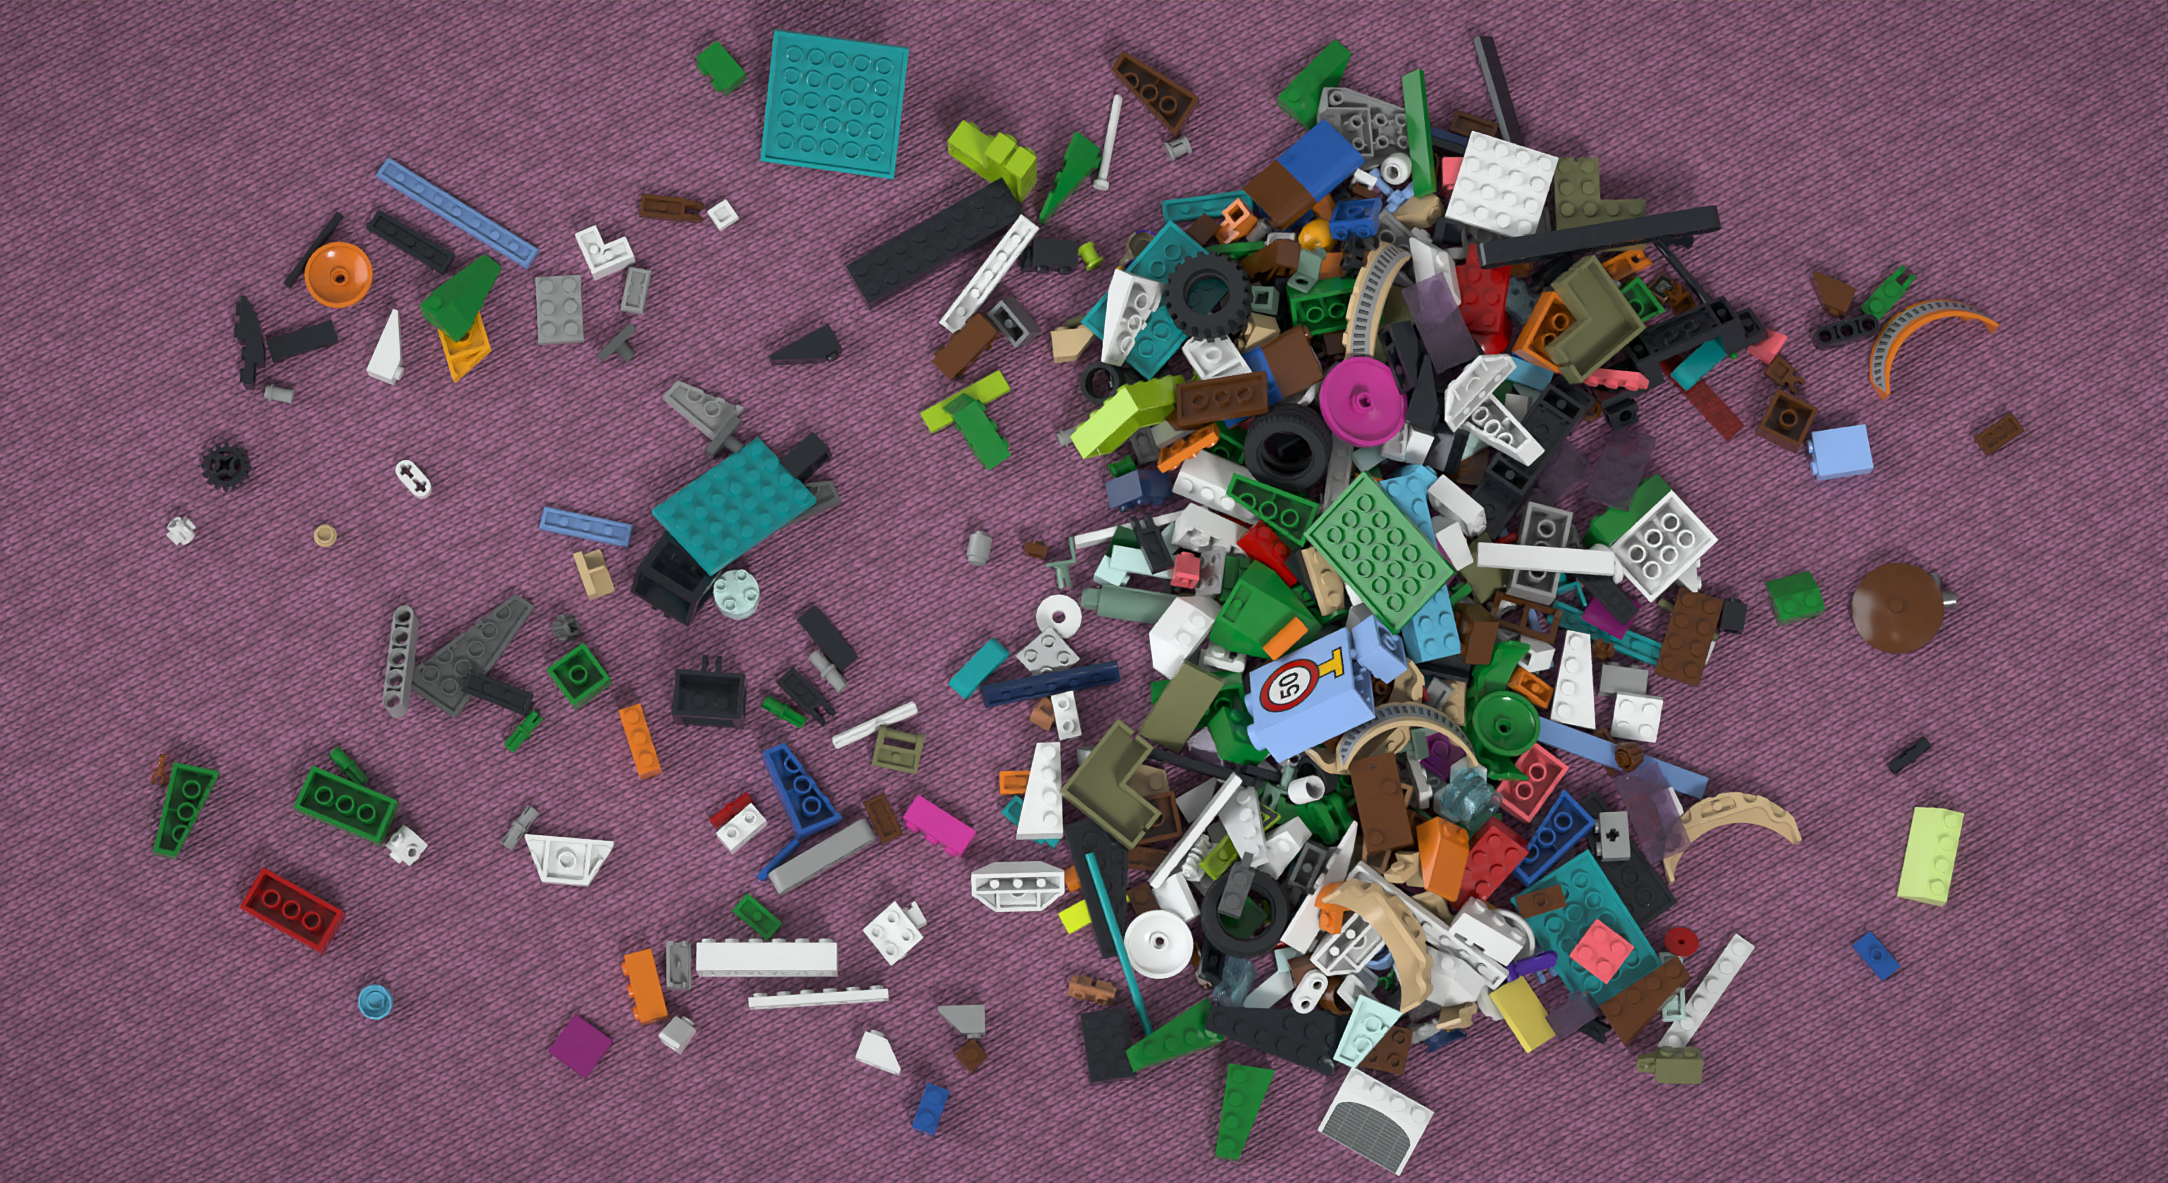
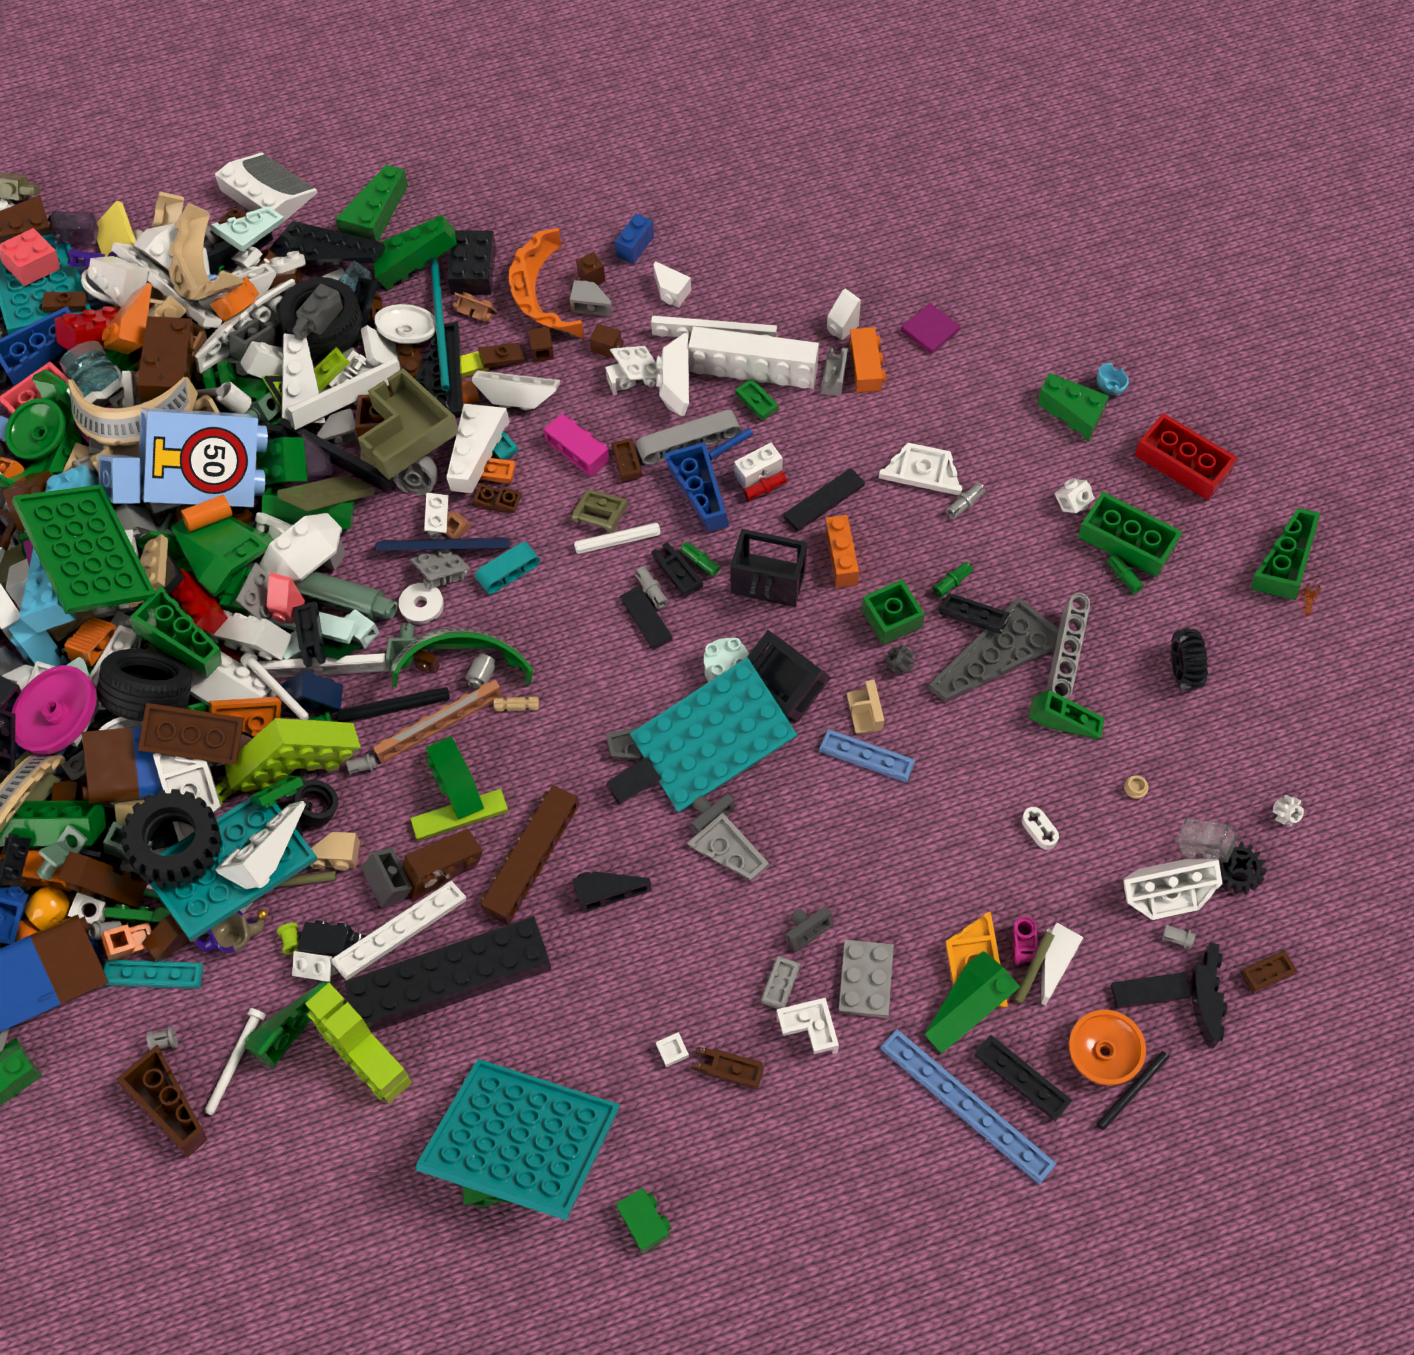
camera: 165 degrees left, 15 degrees down
(196, 374) = (1268, 972): none -> reddish brown plate
(257, 481) = (1206, 840): none -> clear brick
(281, 668) = (1189, 659): none -> black gear
(289, 436) = (1172, 887): none -> white wedge
(396, 594) = (1064, 715): none -> green slope
(408, 337) = (1034, 967): none -> olive bar
(414, 962) = (1073, 403): none -> green wedge
(419, 359) = (1024, 946): none -> dark pink piece
(667, 806) = (824, 499): none -> black tile
(848, 916) = (674, 375): none -> white wedge
(887, 371) = (529, 855): none -> reddish brown brick
(934, 964) = (604, 339): none -> reddish brown brick
(937, 523) = (516, 703): none -> tan axle
(1001, 495) = (437, 722): none -> nougat plate
(1006, 950) = (541, 344): none -> reddish brown brick
(1009, 572) = (459, 639): none -> green windscreen
(1009, 751) = (497, 500): none -> reddish brown slope
(1038, 1011) = (523, 281): none -> orange windscreen
(1046, 928) = (501, 355): none -> reddish brown plate
(1056, 503) = (393, 704): none -> black axle
(1059, 228) = (313, 966): none -> white hinge
(1135, 370) = (284, 787): none -> green plate
(1166, 479) = (250, 660): none -> white bar
(1334, 789) = (212, 392): none -> light grey bar

